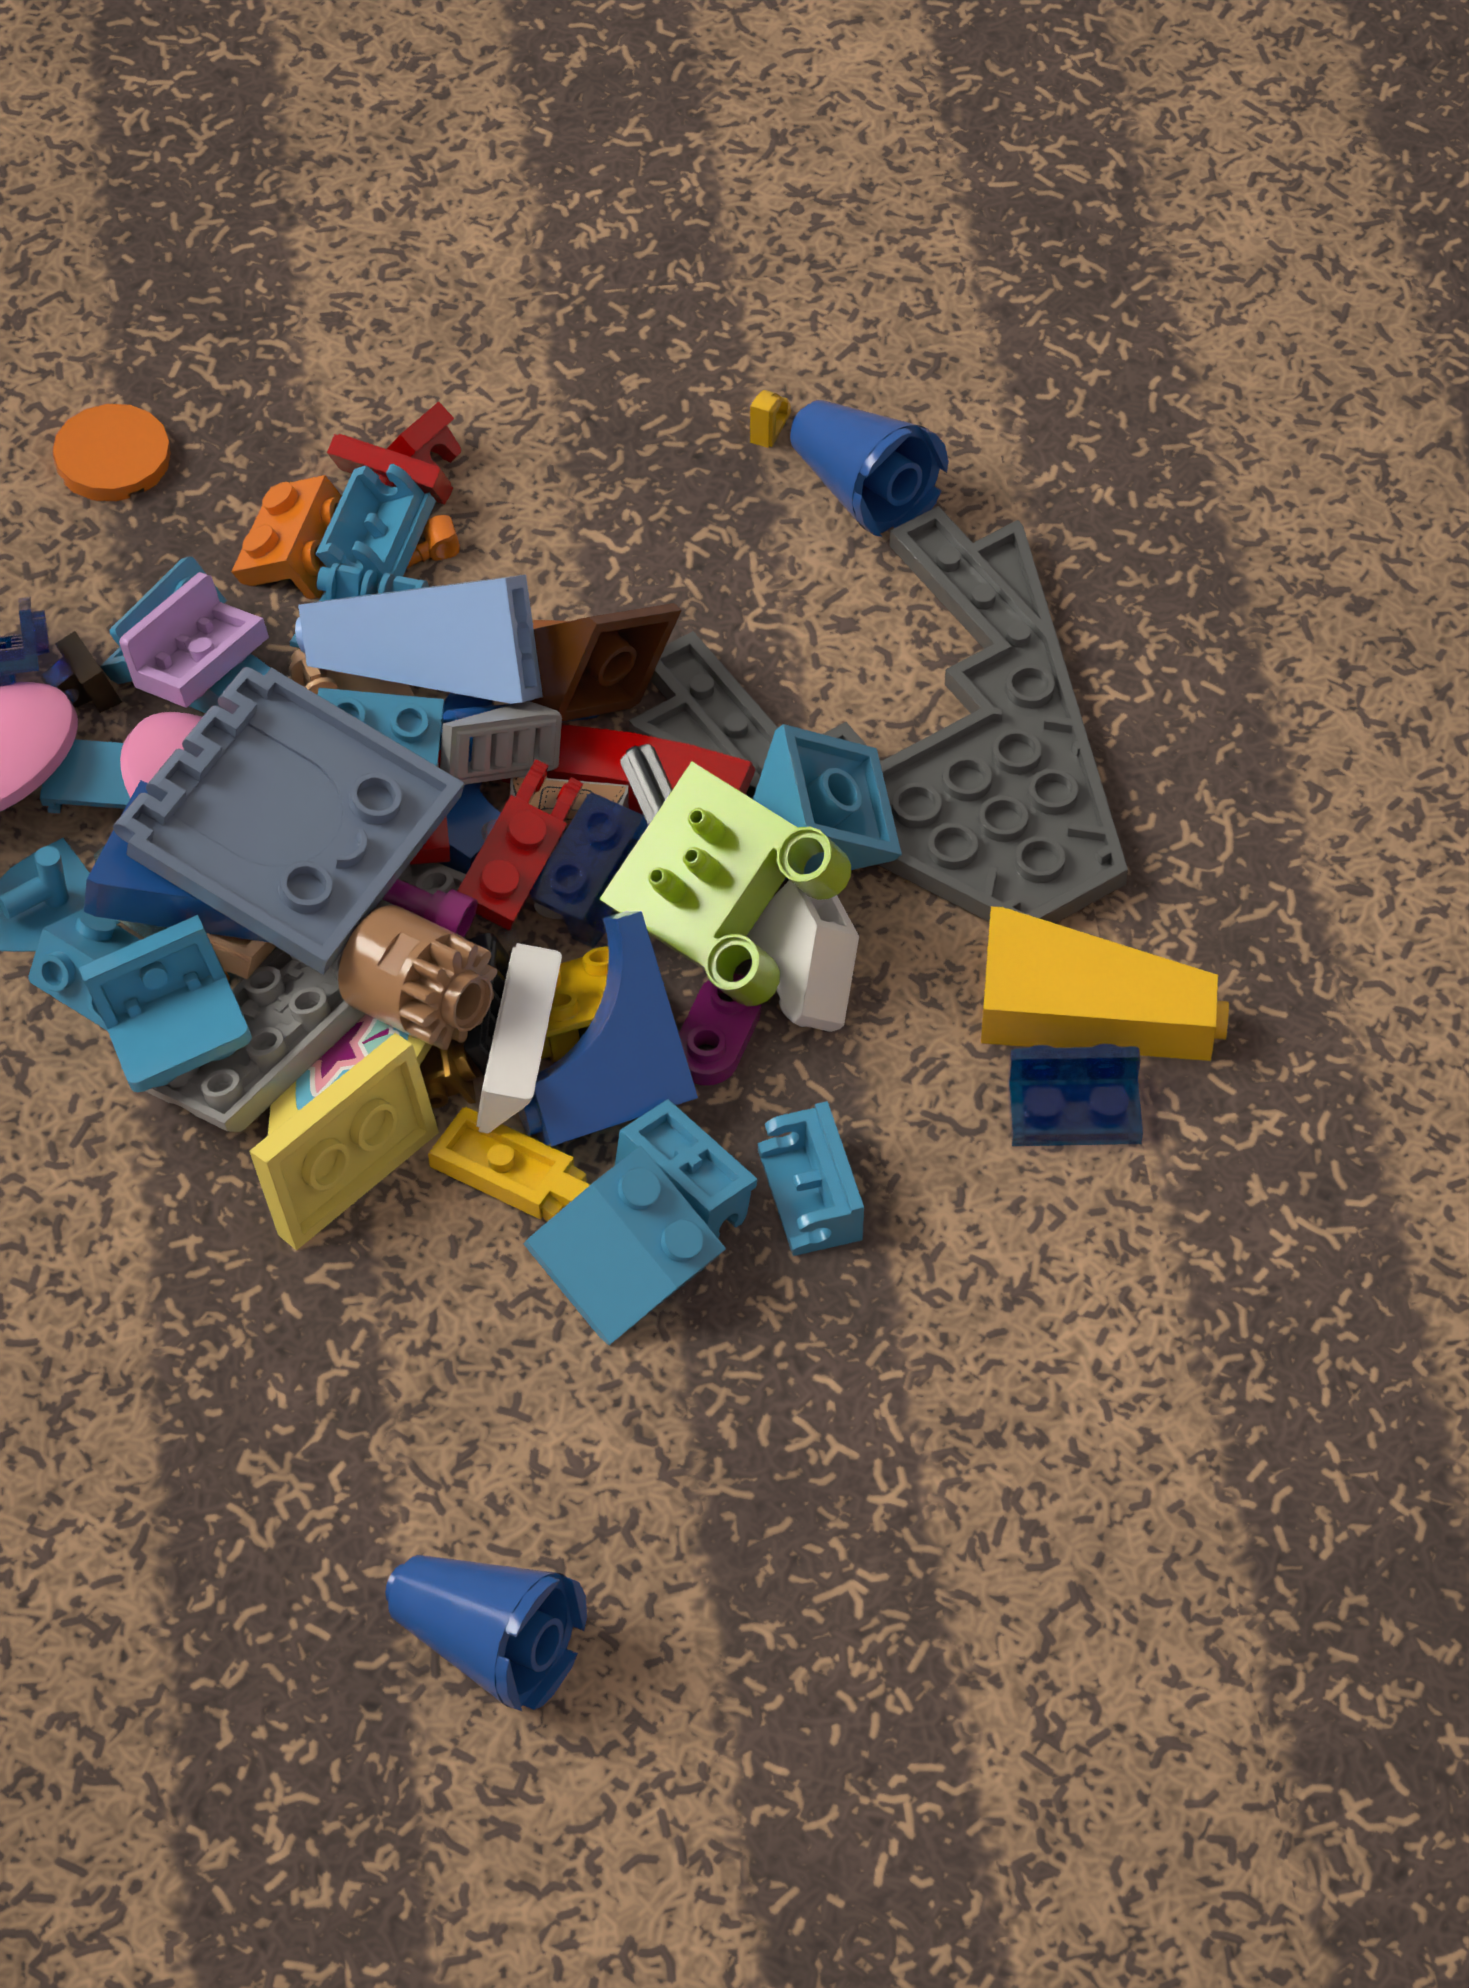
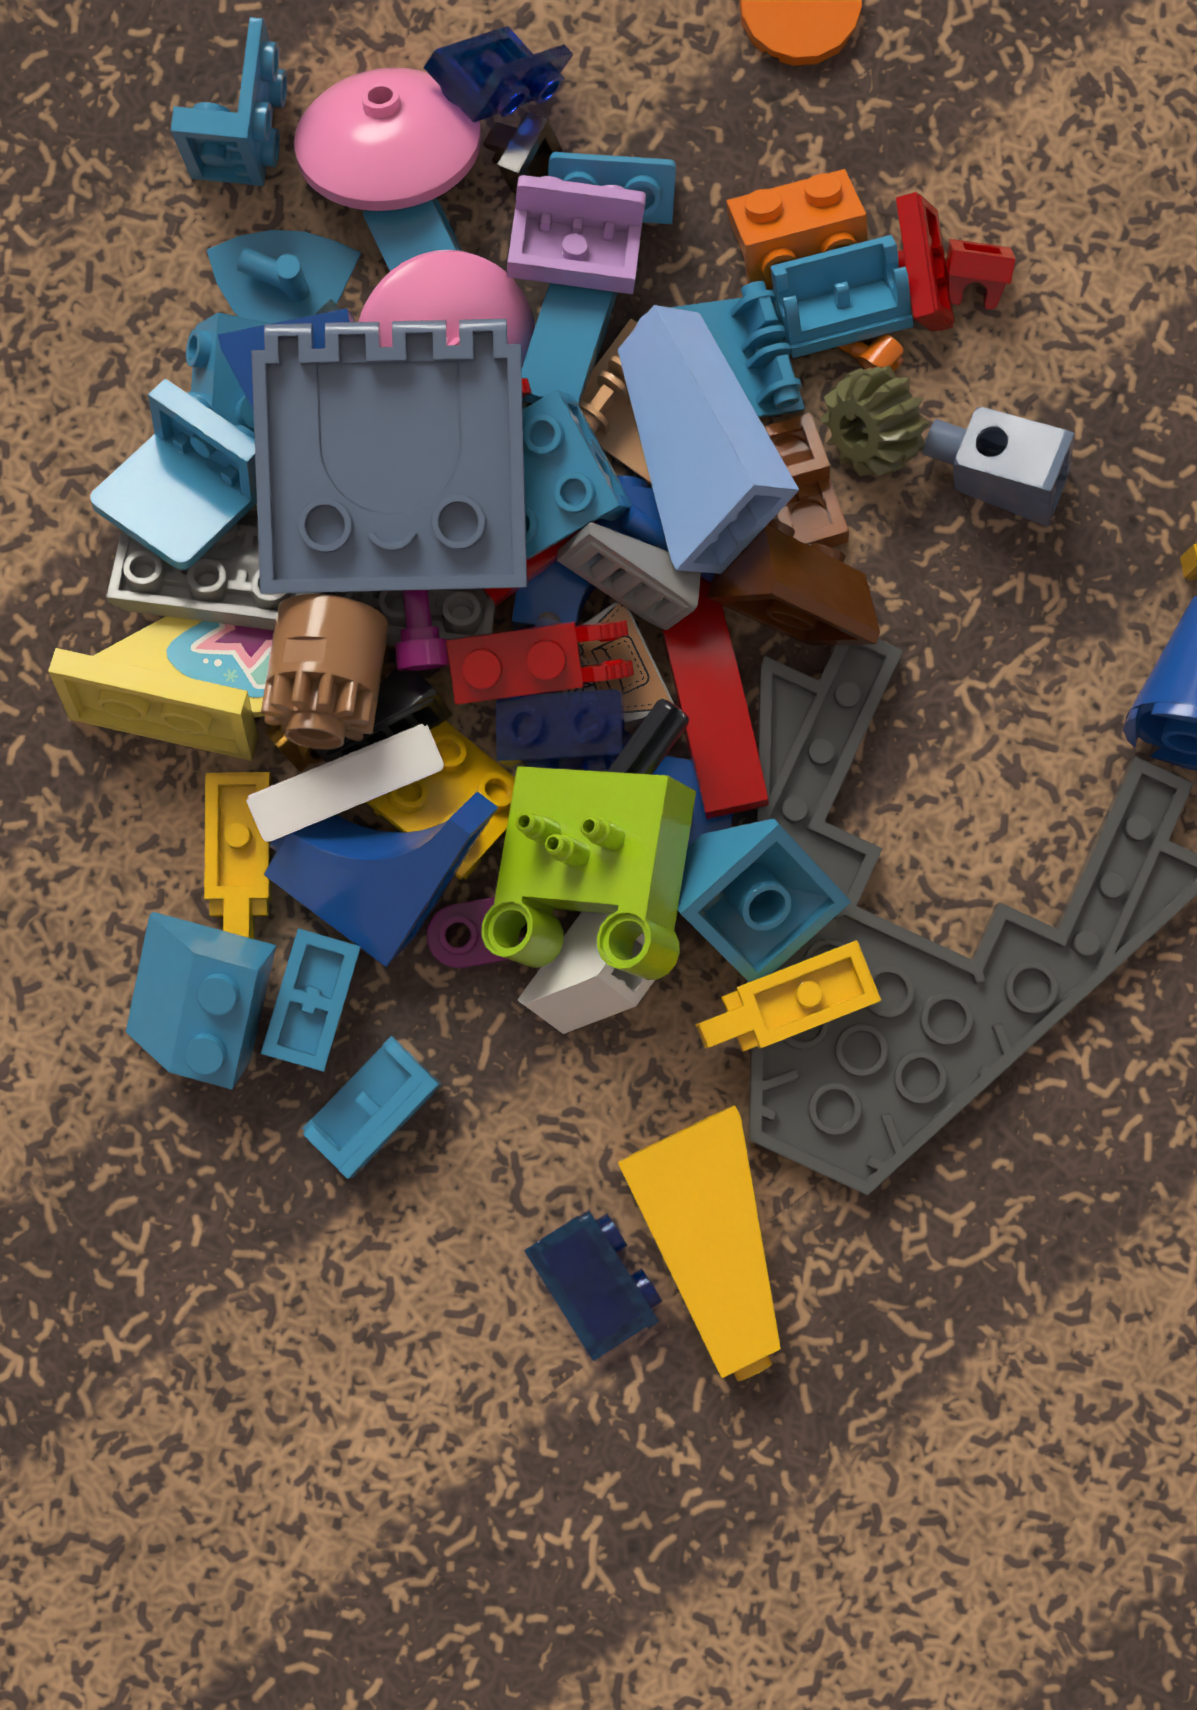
camera: 60 degrees right, 30 degrees up
(510, 534) = (874, 421): none -> olive gear
(595, 486) = (1006, 461): none -> sand blue torso
(929, 827) = (793, 1000): none -> yellow hinge

